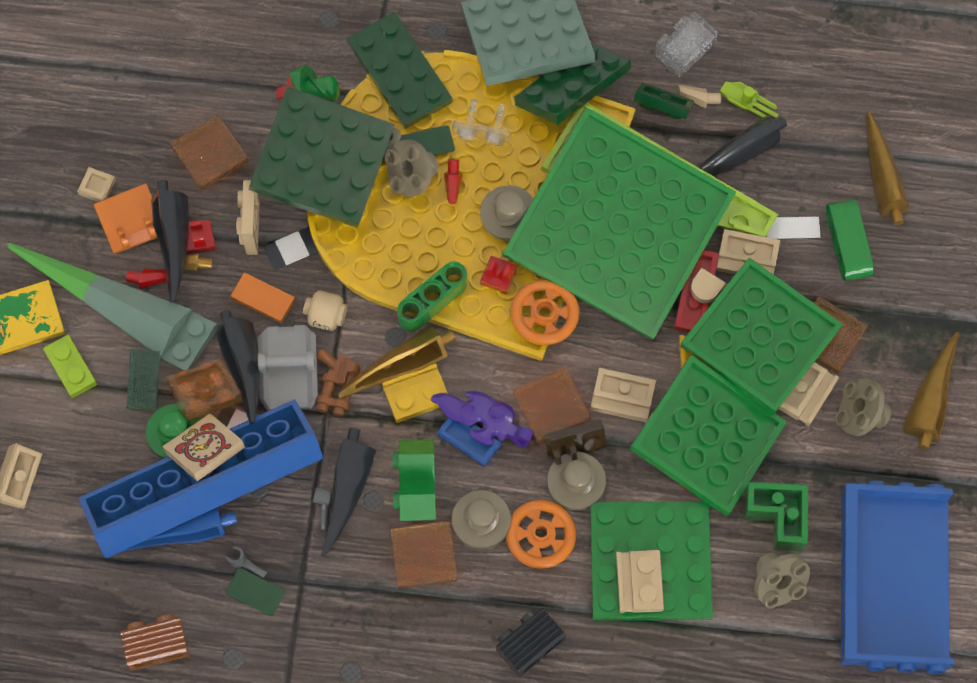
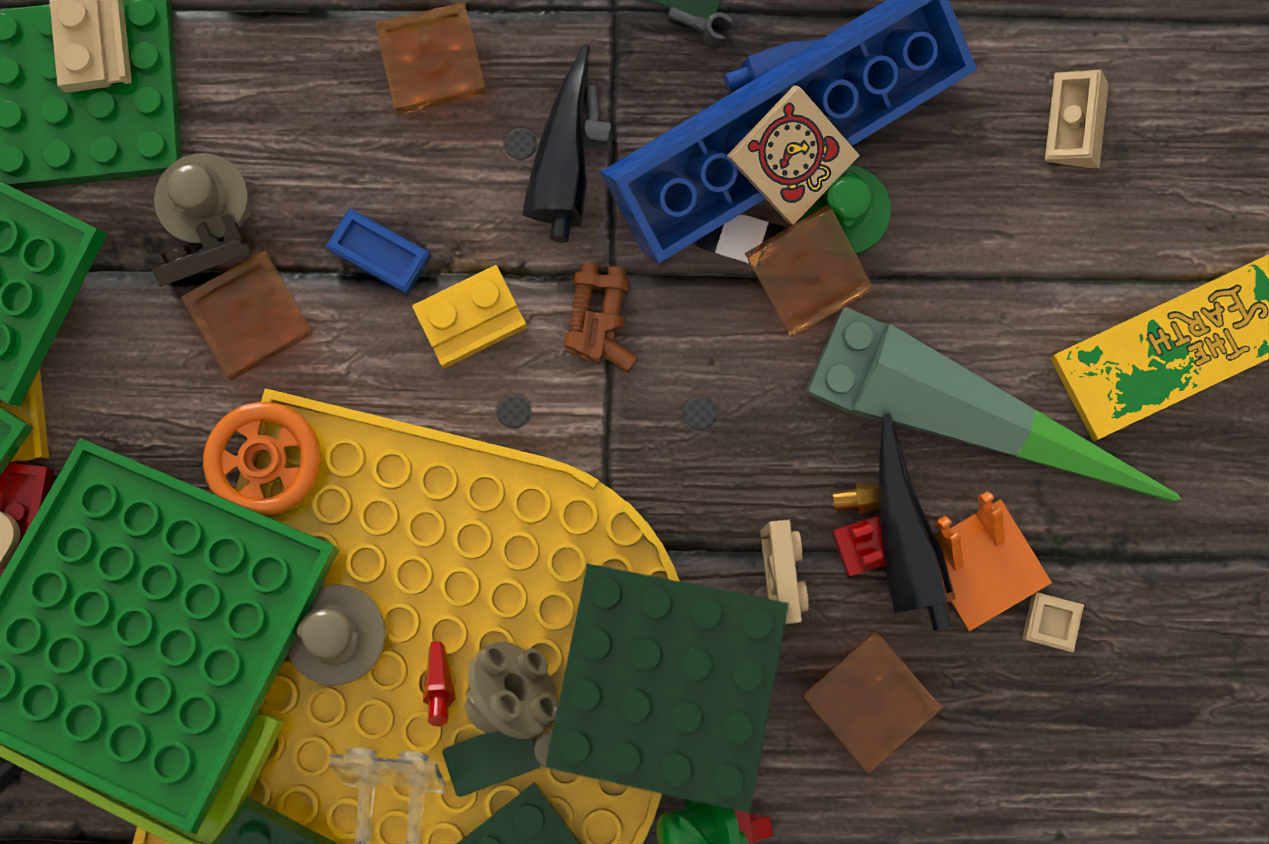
camera: 175 degrees right, 10 degrees up
(70, 366) = (1031, 301): lime plate -> none
(143, 379) = (909, 282): clear green plate -> none
(147, 277) = (936, 463): red bar -> none
(240, 354) = (759, 342): black piece -> none
(262, 298) = (739, 450): orange tile -> none
(287, 366) = (681, 334): light grey shield -> none
(290, 248) = (707, 546): sticker -> none
(325, 310) = (632, 434): tan head -> none
(408, 357) = (486, 371): pearl gold piece -> none
(416, 480) = (451, 164): green brick -> none
(435, 284) = (427, 469): green beam -> none
(481, 519) = (347, 124): dark tan plate -> none
(494, 415) = (338, 287): dark purple piece -> none
(498, 274) = (345, 520): red tile -> none
(533, 557) = (268, 148): orange plate -> none
(623, 395) = (131, 344): tan plate -> none

